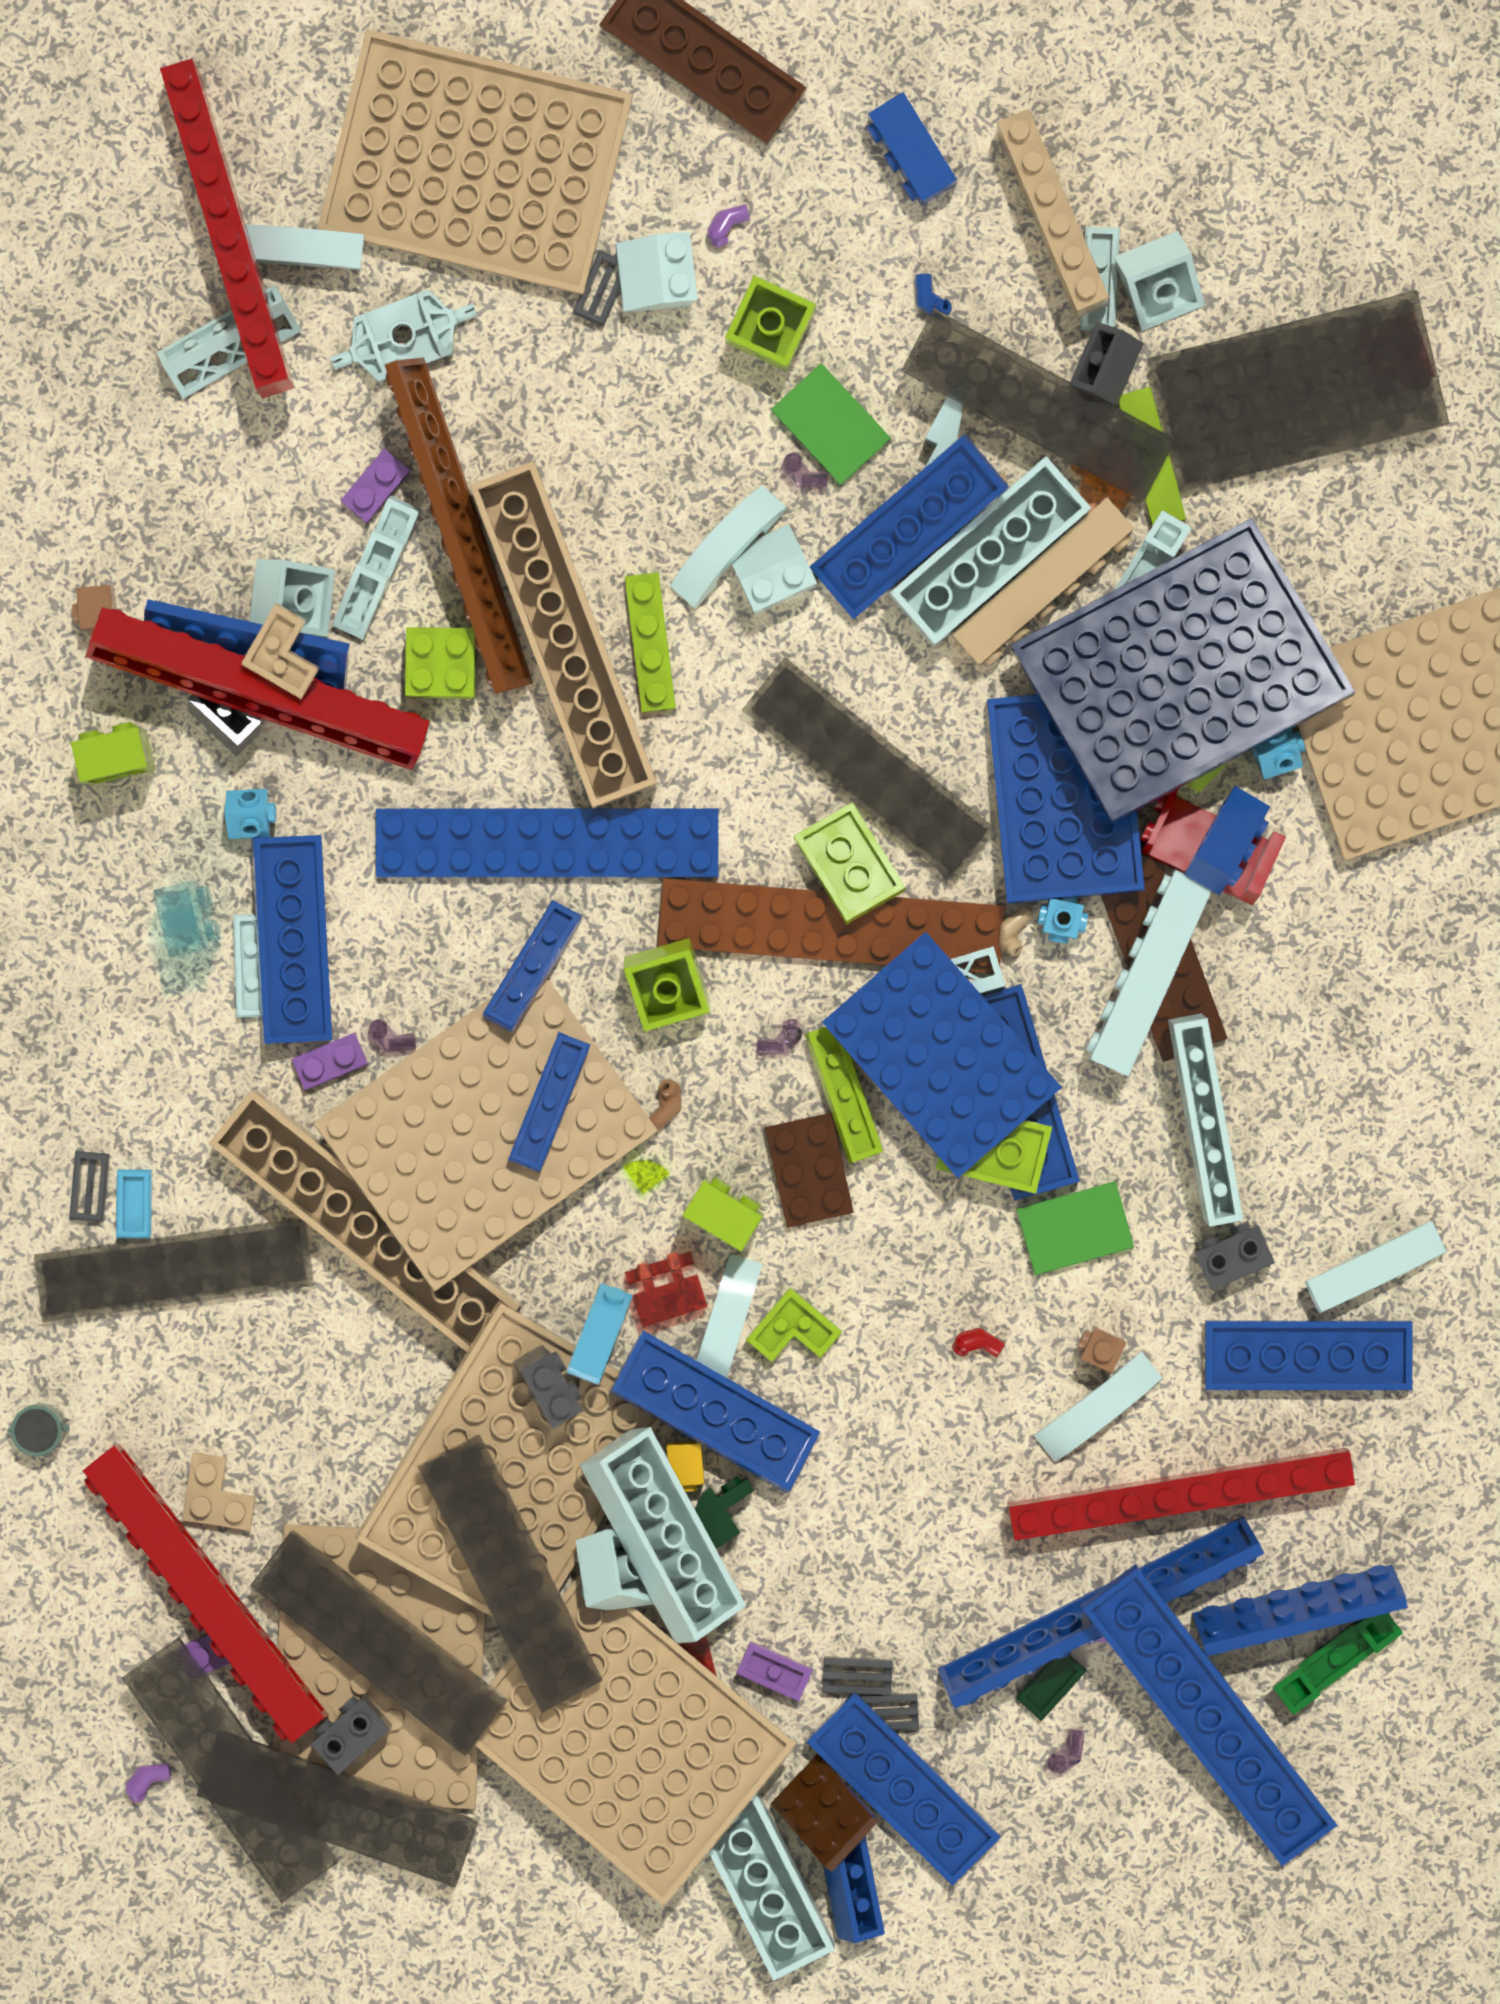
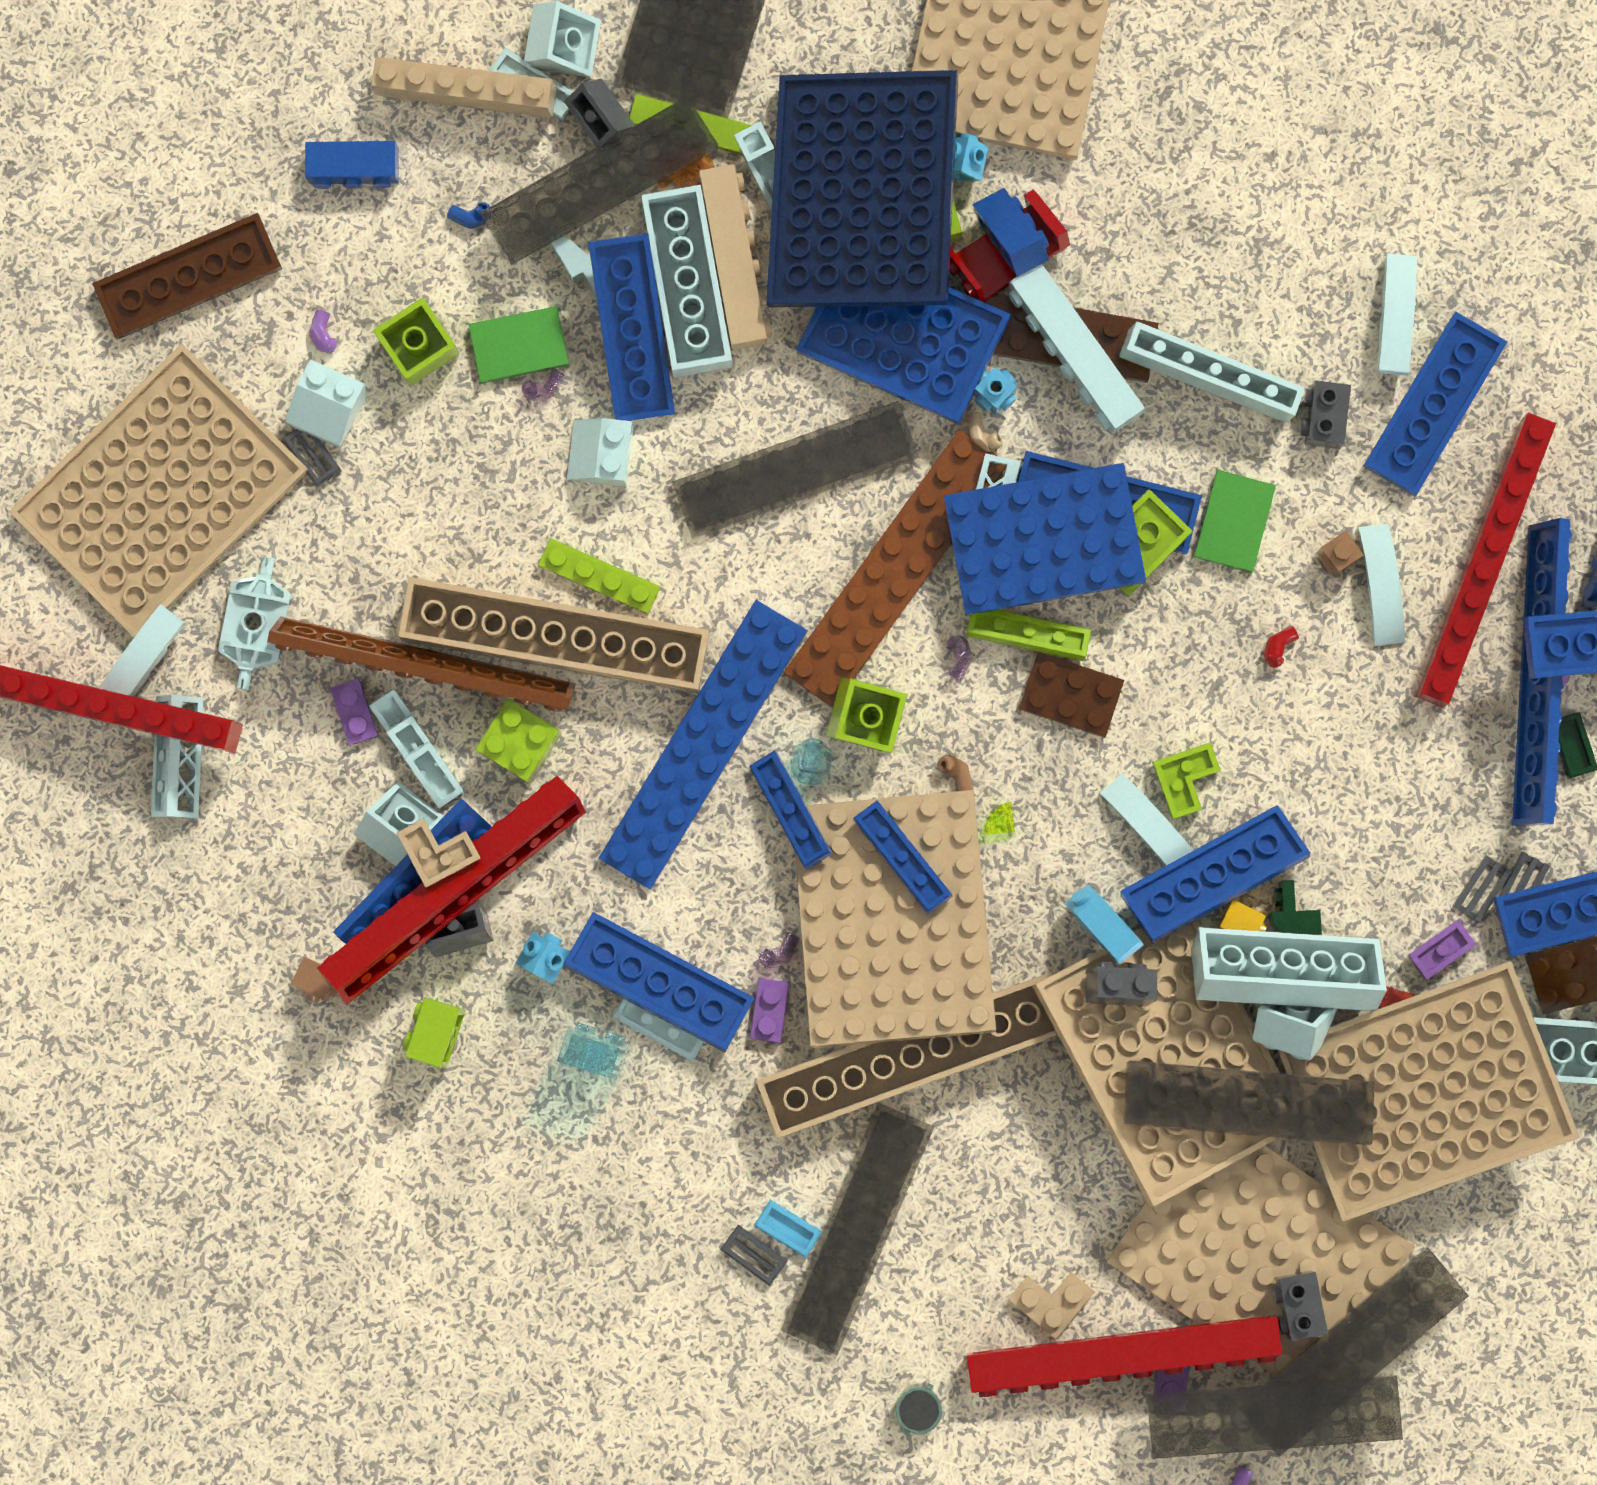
camera: 50 degrees left, 5 degrees down
(379, 1643) = (1242, 1240): clear smoke plate -> none
(591, 958) = (811, 762): none -> clear light blue head
(670, 1299) = (1107, 860): clear red plate -> none
(724, 1213) = (1067, 776): lime brick -> none
(725, 544) = (560, 475): light aqua slope -> none
(849, 863) = (857, 524): lime plate -> none

